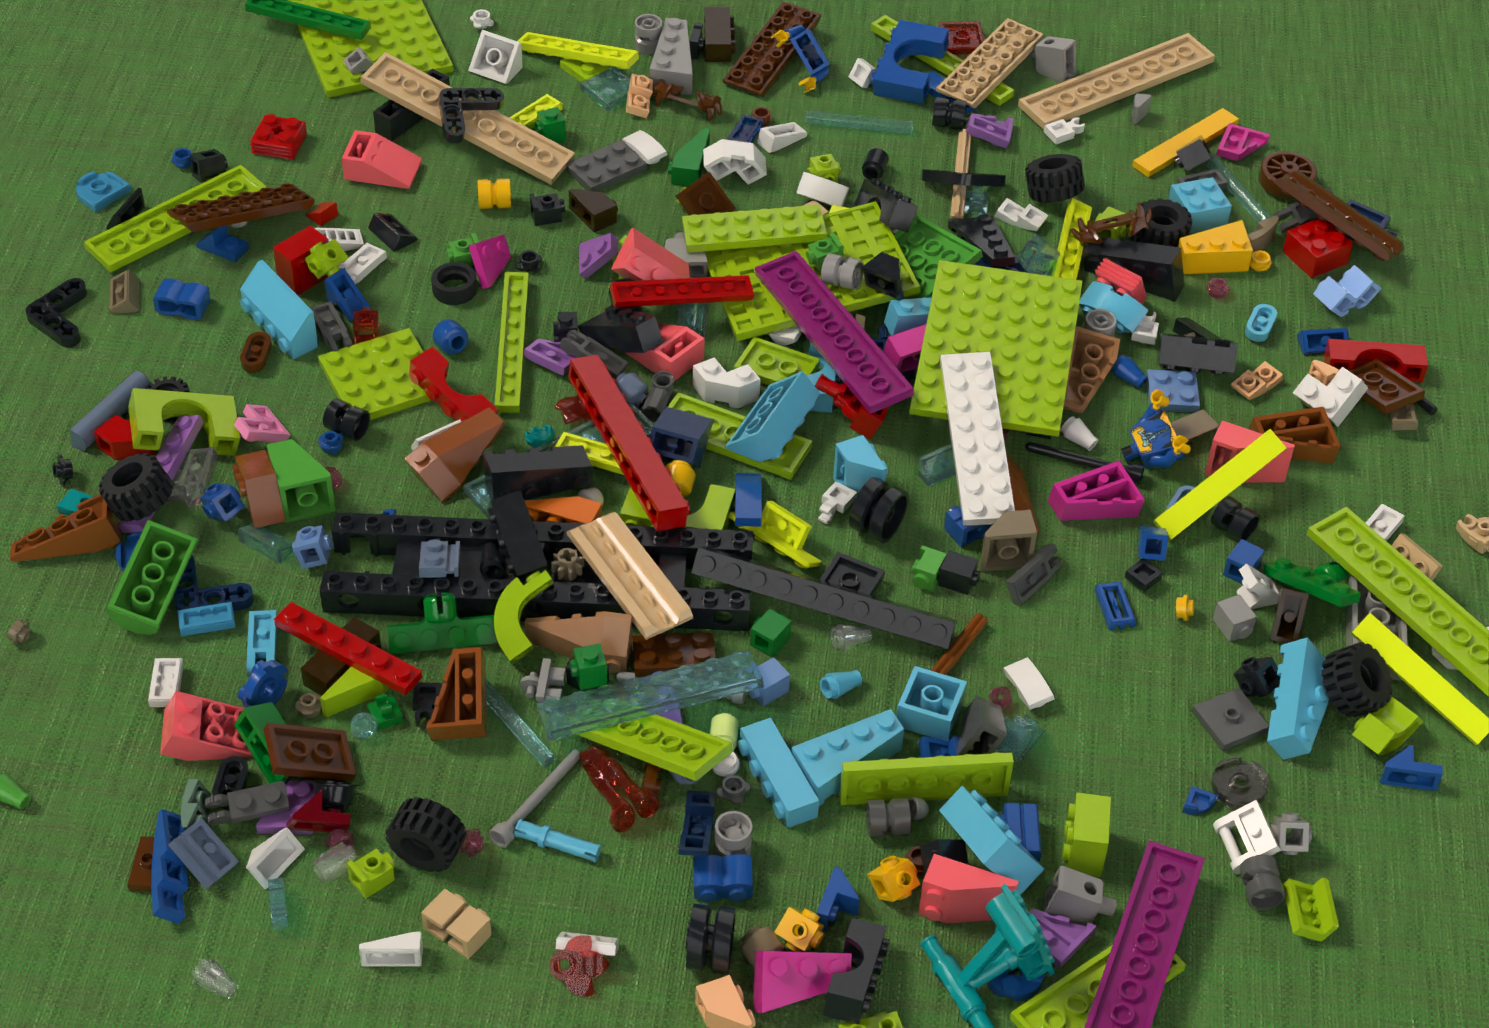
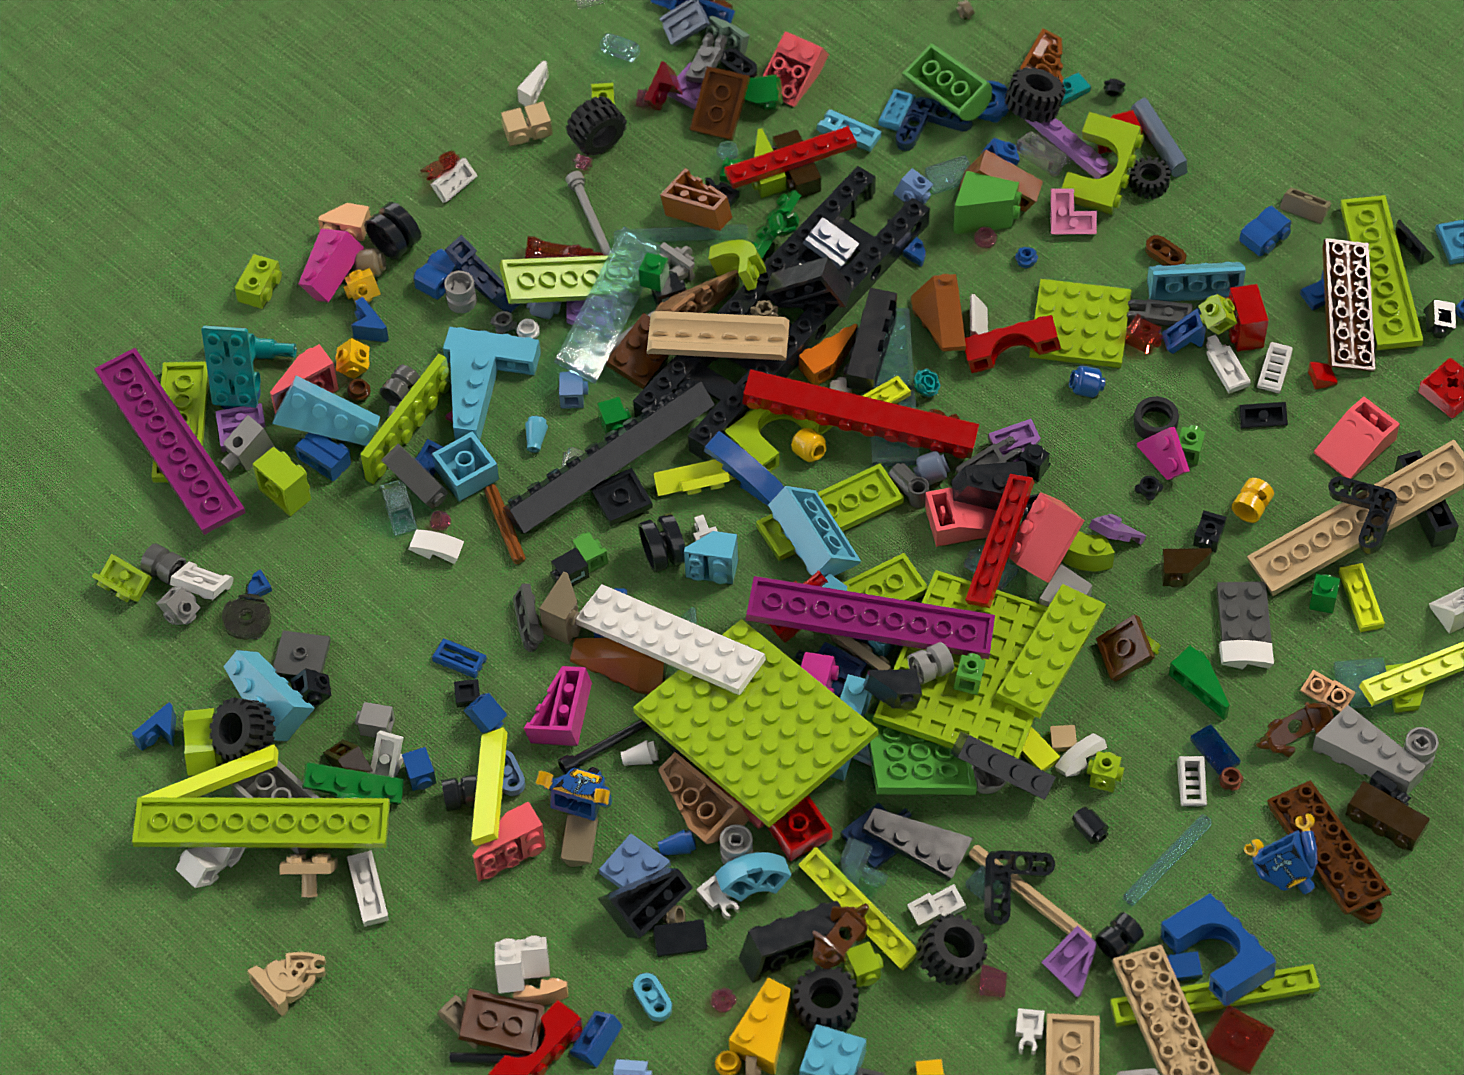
camera: 130 degrees right, 10 degrees up
(70, 293) = (1316, 149): black beam -> none
(165, 680) = (854, 66): white plate -> none
(264, 684) = (795, 101): blue plate -> none
(273, 856) = (657, 52): white slope -> none
(308, 710) = (772, 130): dark tan plate -> none
(334, 793) = (681, 106): black piece -> none
(334, 862) = (626, 86): clear brick -> none
(346, 419) = (1039, 268): black wheel -> none
(512, 342) = (1055, 423): lime plate -> none
(547, 837) = (567, 194): medium azure pin -> none
(681, 436) = (843, 459): dark blue slope -> none
(725, 727) = (549, 338): yellowish green brick -> none
(731, 156) = (1161, 710): white brick -> none
(734, 387) = (893, 528): white brick -> none
(849, 991) = (319, 312): black arch -> none
(862, 73) = (1239, 905): white tile -> none
(949, 848) = (343, 387): black brick -> none
(1121, 280) = (771, 897): coral brick -> none
(1184, 607) = (414, 696): yellow plate -> none
(1257, 382) = (591, 940): light nougat slope -> none
(1305, 429) = (504, 904): dark orange wedge -> none

